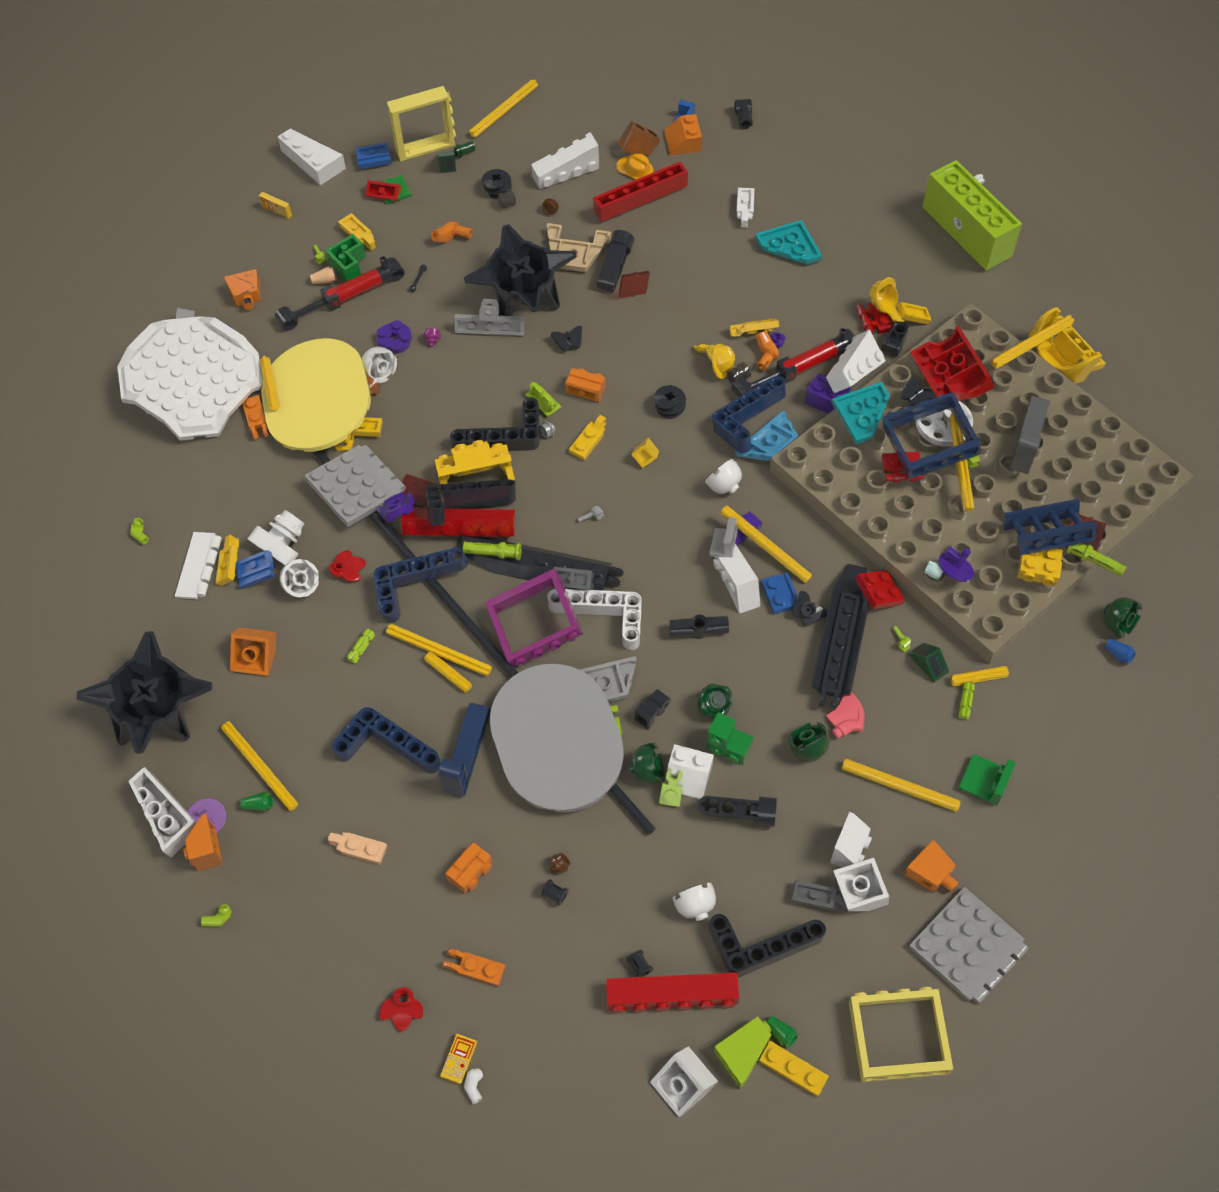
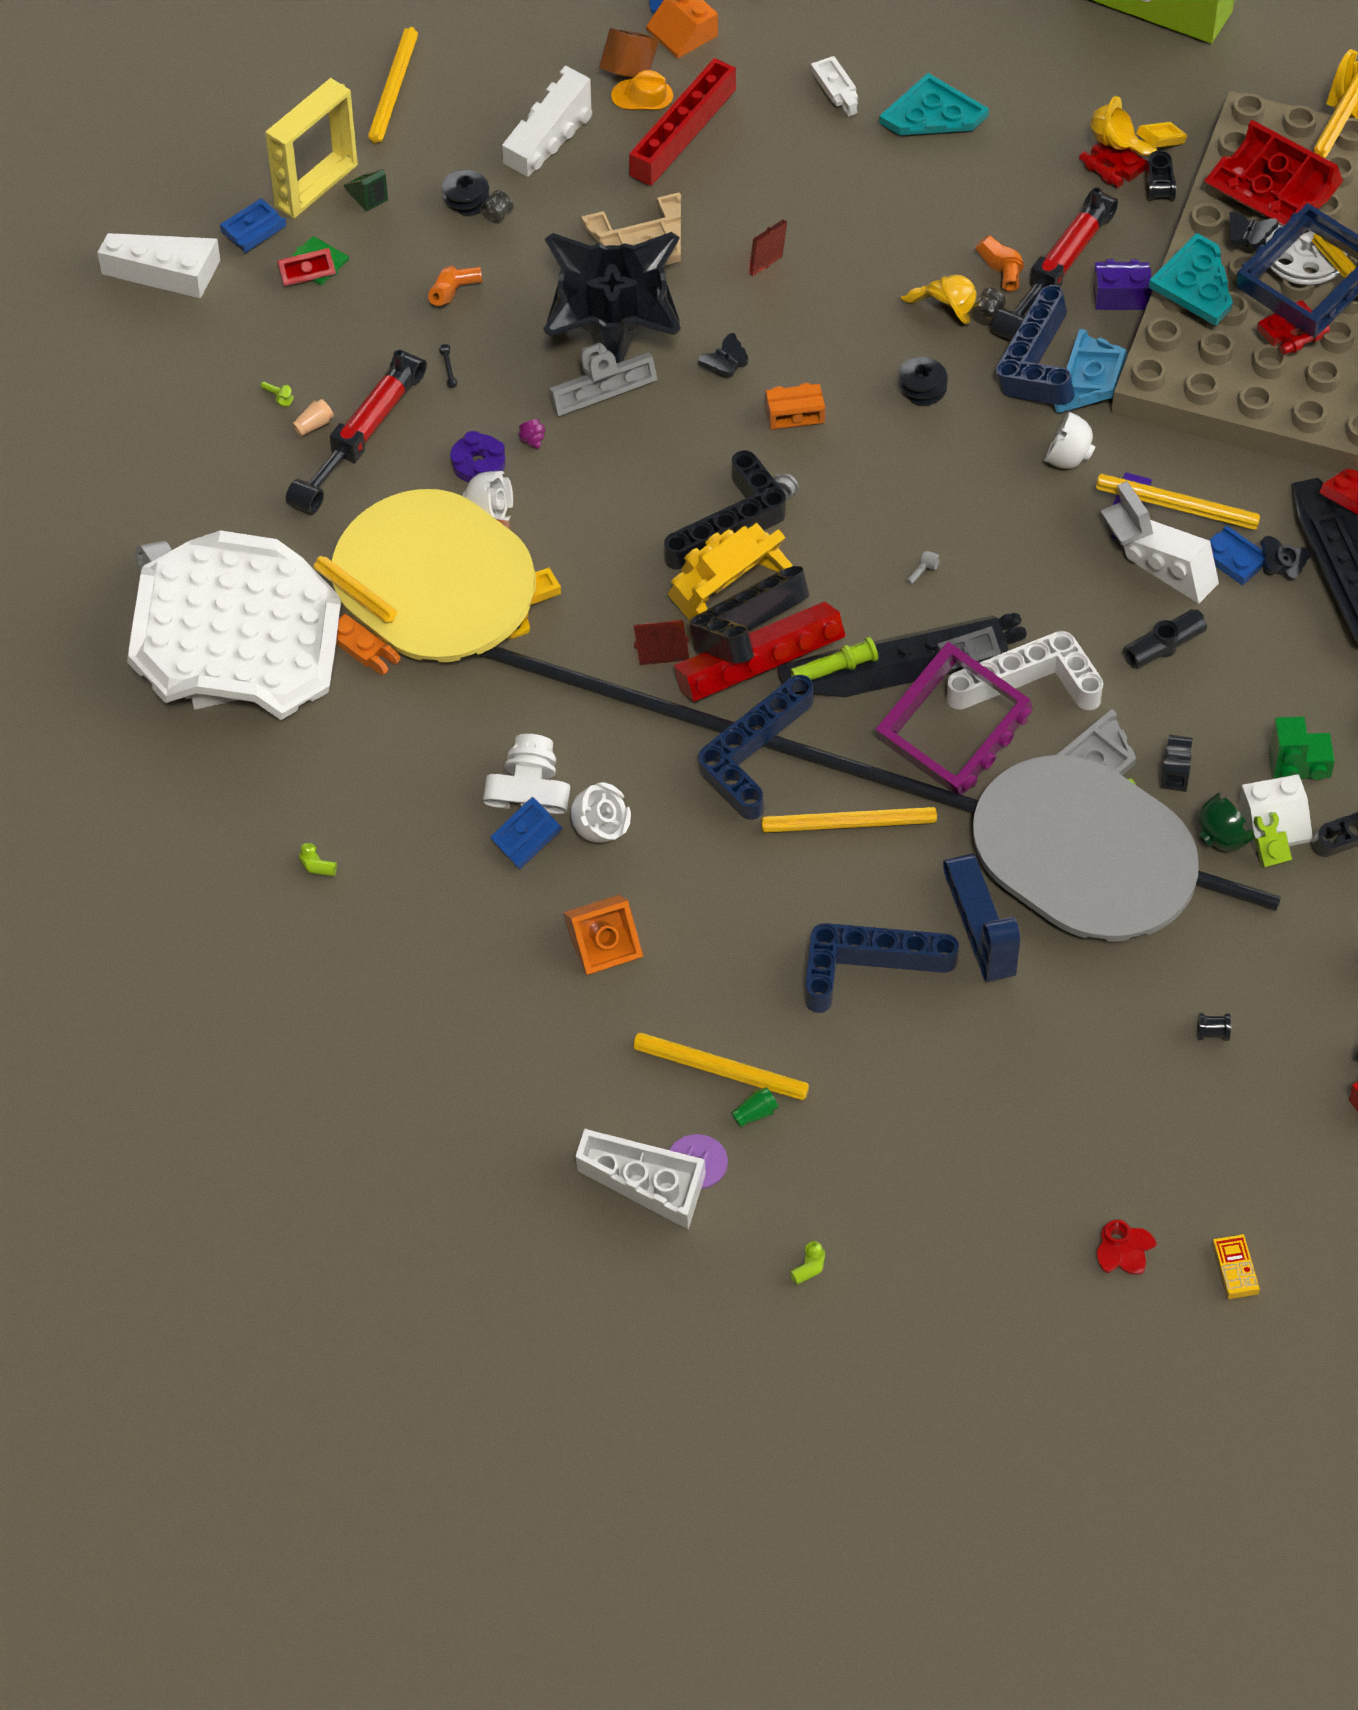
camera: 30 degrees left, 5 degrees down
(146, 696) = (524, 1040): black piece -> none
(198, 565) = (436, 867): white windscreen -> none
(202, 845) = (737, 1184): orange slope -> none
(227, 561) = (477, 842): yellow hinge -> none
(244, 288) = (209, 482): orange torso -> none
(275, 205) = (162, 350): yellow tile -> none
(346, 257) = (330, 378): green brick -> none
(348, 566) = (646, 775): red plate -> none
(352, 225) = (314, 337): yellow hinge -> none
(354, 484) = (579, 666): light grey hinge -> none
(359, 847) = (926, 1097): light nougat hinge -> none
(360, 645) = (741, 862): lime axle -> none
(396, 505) = (665, 665): dark purple plate -> none
(448, 672) = (881, 840): yellow axle -> none
(464, 148) = (381, 160): dark green pin -> none
(469, 868) = (1088, 1050): orange brick -> none
(470, 1085) = (1272, 1286): white arm -> none
(476, 967) = (1178, 1158): orange hinge -> none
(546, 402) = (764, 451): lime hinge -> none
(550, 206) = (566, 192): reddish brown plate -> none
(559, 863) = (1194, 993): reddish brown plate -> none
(588, 438) = (848, 474): yellow hinge -> none
(619, 247) = (709, 209): black beam -> none
(645, 452) = (938, 458): yellow panel -> none
(713, 700) = (1250, 715): dark green hair -> none
(753, 326) = (962, 239): yellow hinge -> none
(778, 339) = (1007, 239): dark purple plate -> none
(857, 361) = (1140, 224): white wedge -> none

